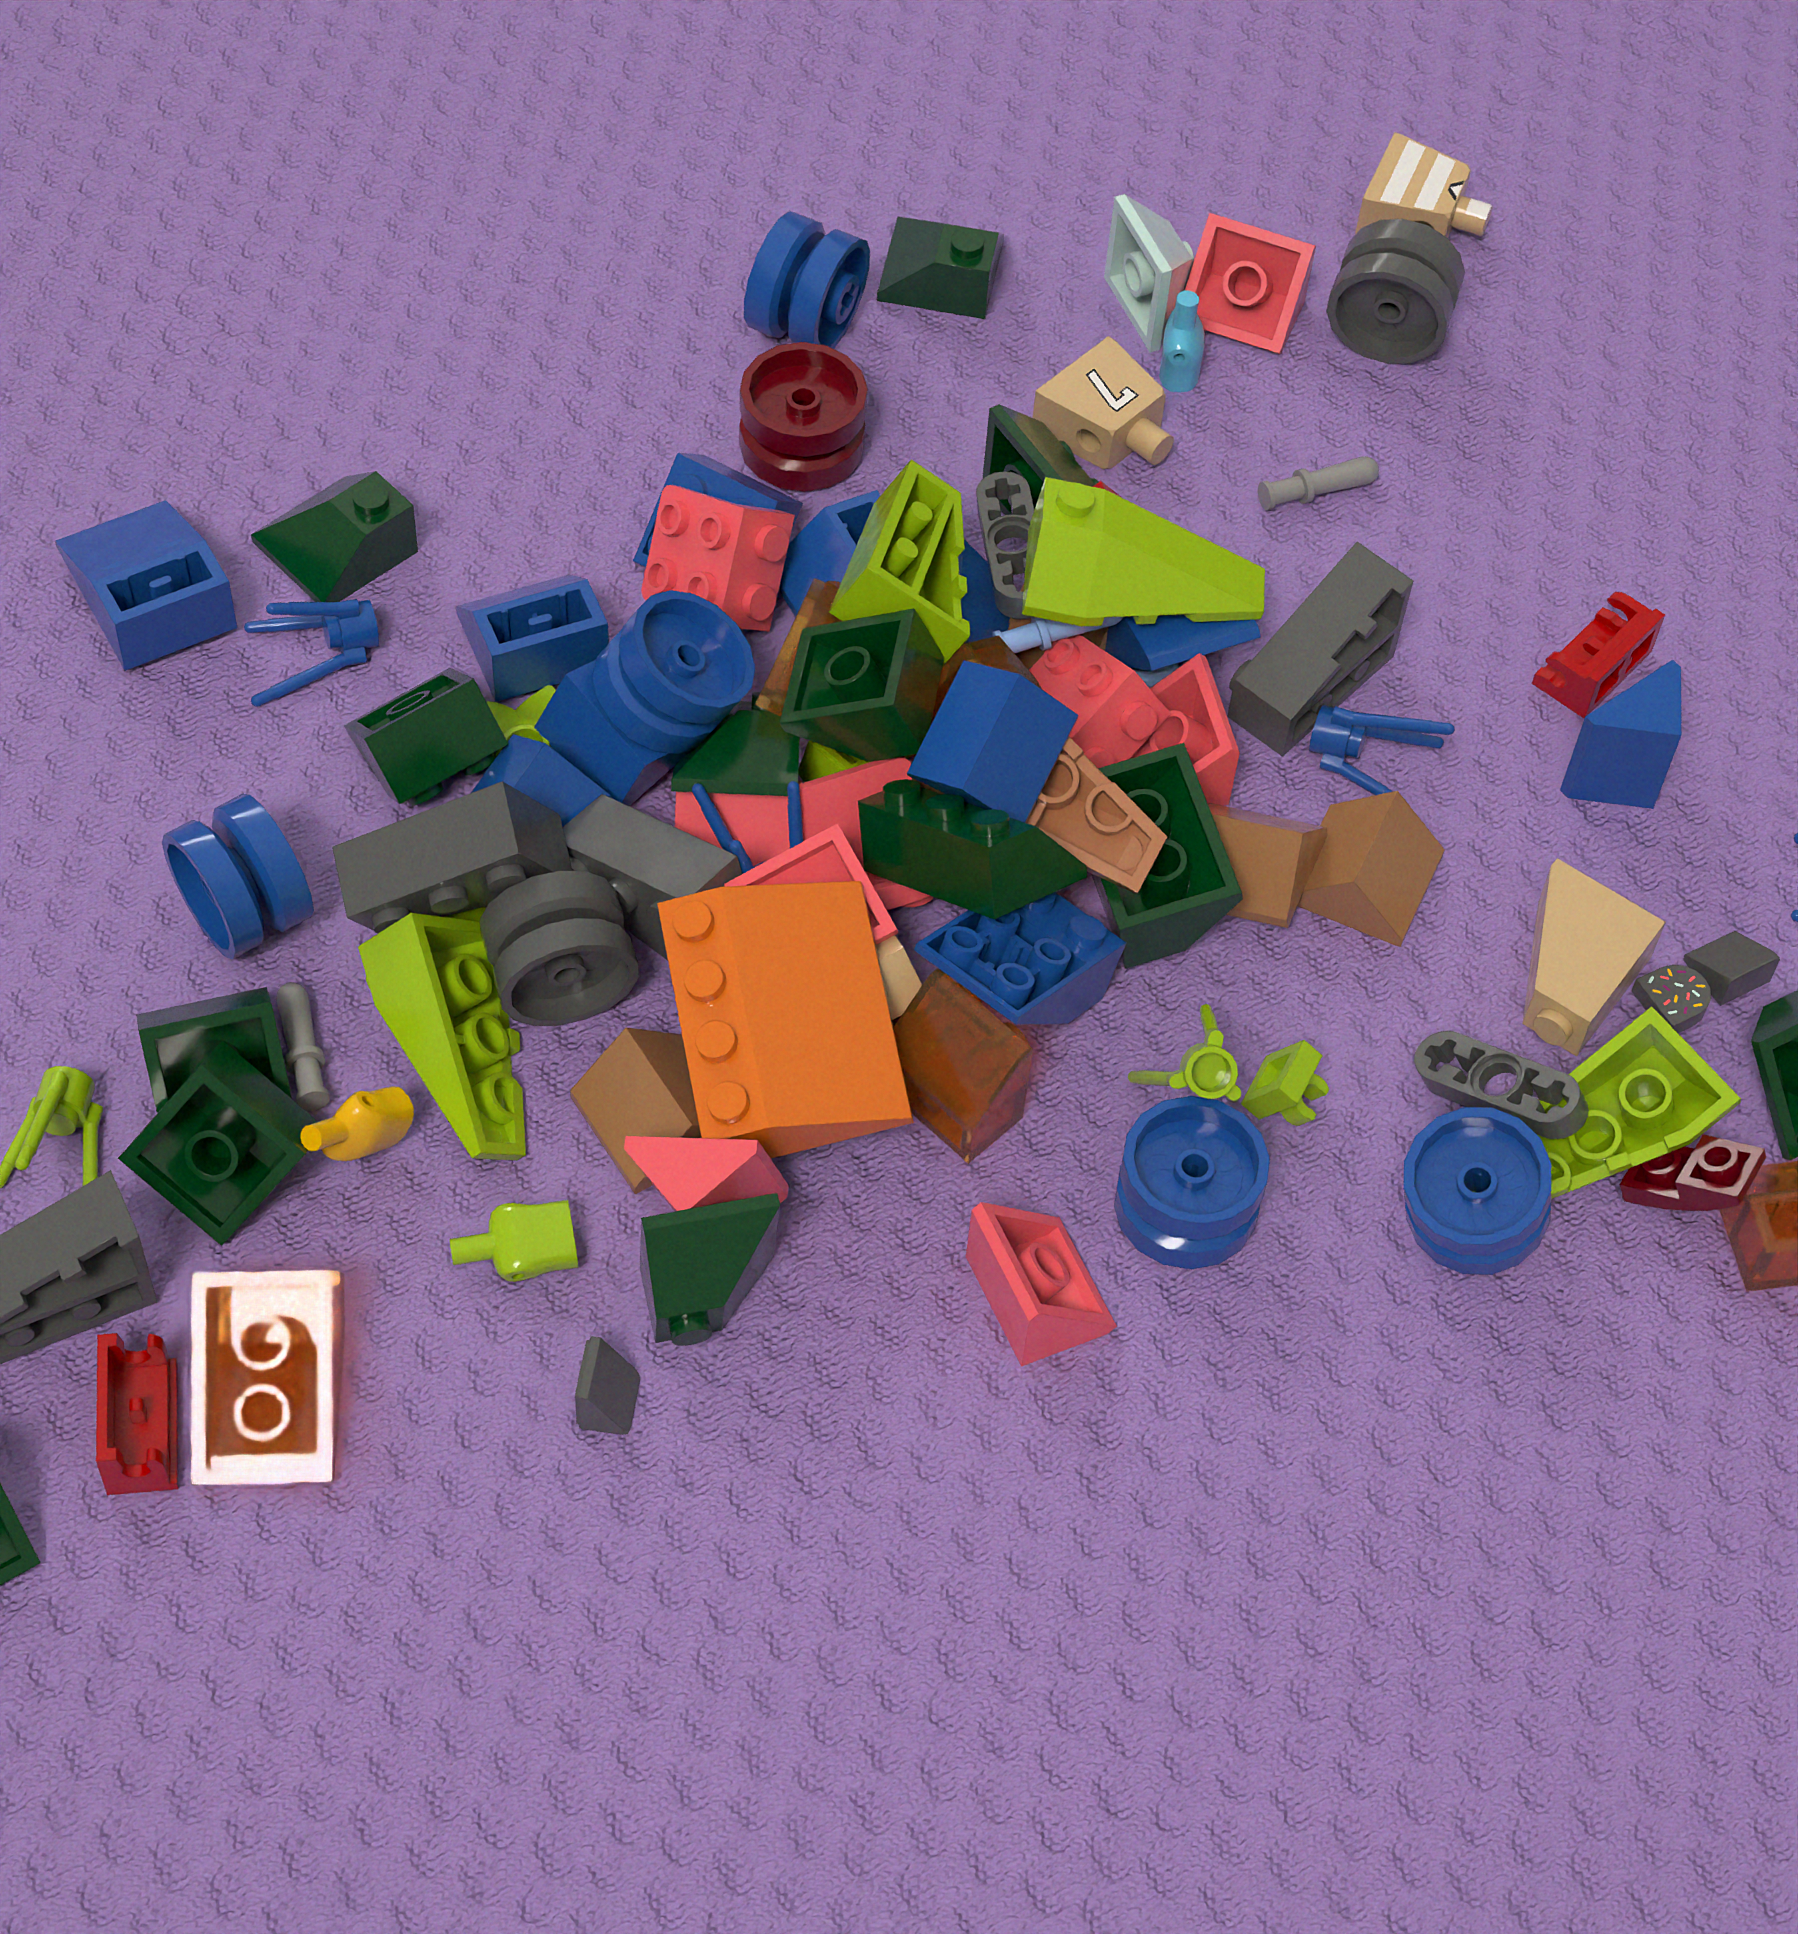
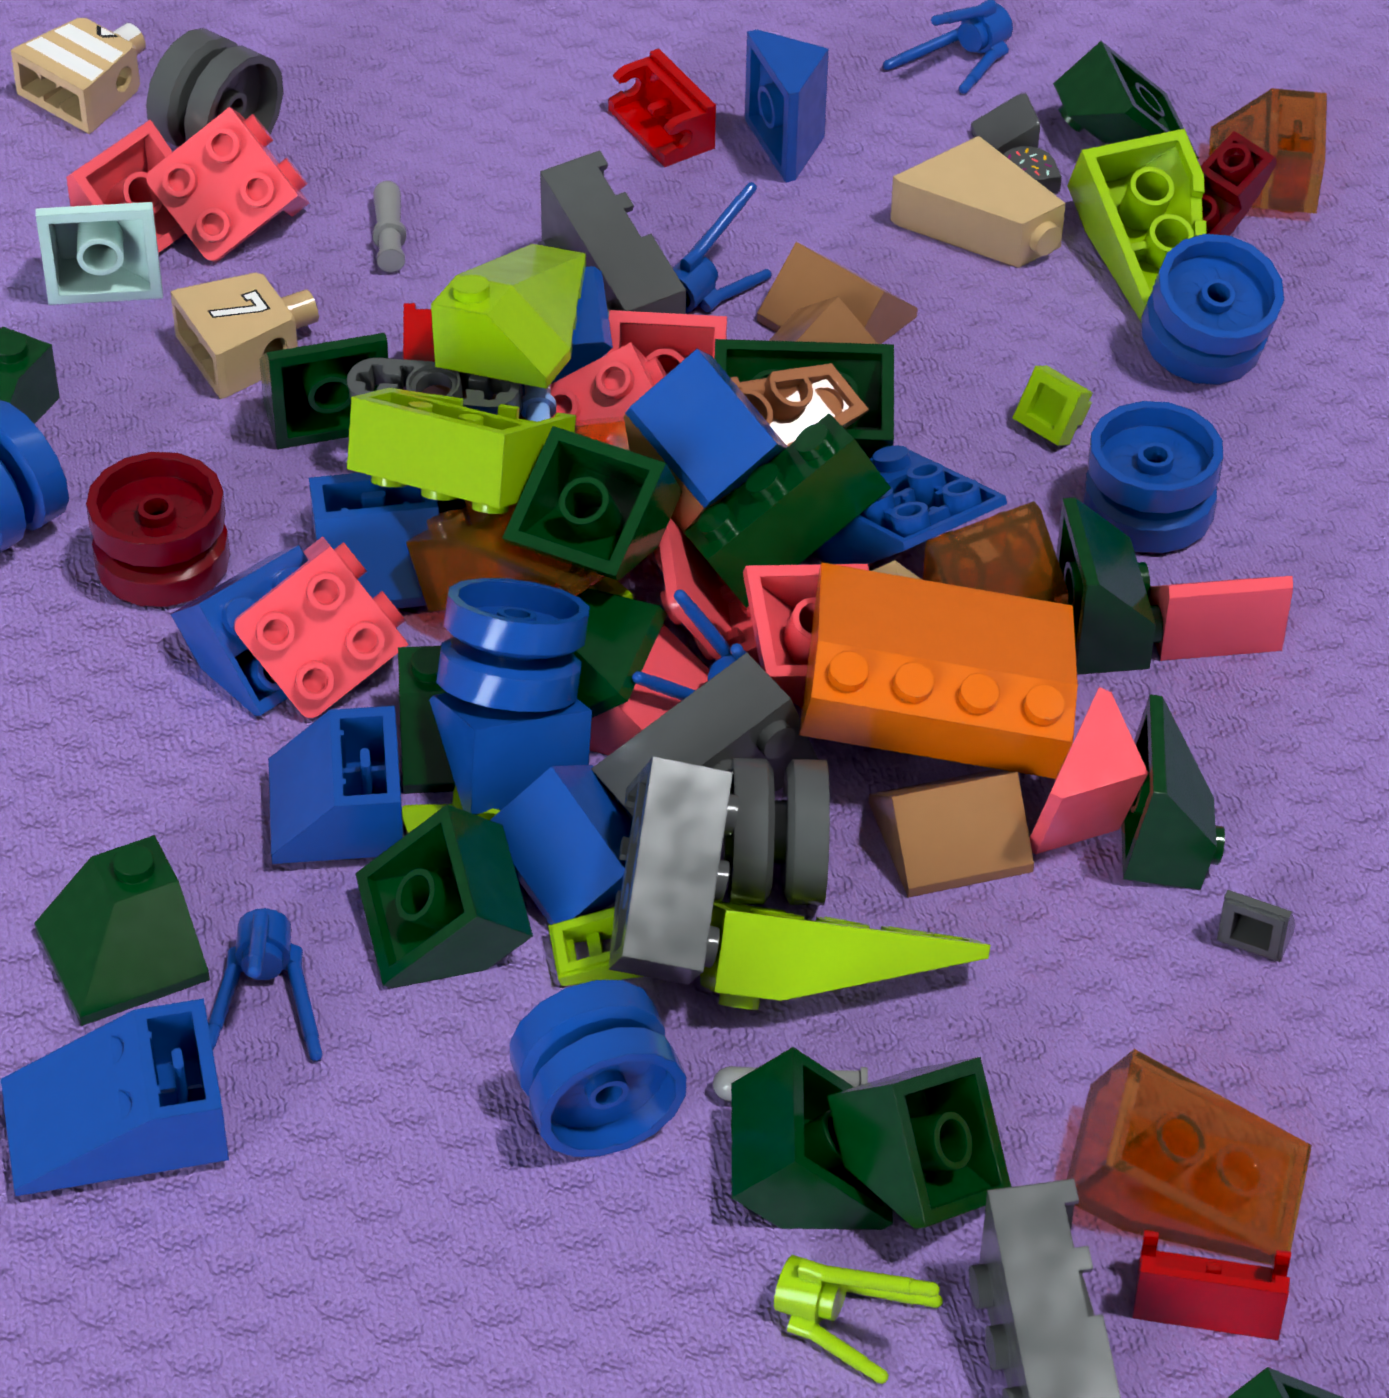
camera: 70 degrees left, 10 degrees down
(362, 1125) = (926, 1029): yellow piece -> none
(522, 1241) = (1081, 945): lime piece -> none
(996, 1152) = (1107, 593): none -> dark green slope
(1182, 345) = (187, 253): medium azure piece -> none
(1203, 1068) = (1068, 417): lime plant -> none
(1292, 339) = (226, 184): none -> coral bracket
(1487, 1061) = (1062, 287): dark grey beam -> none

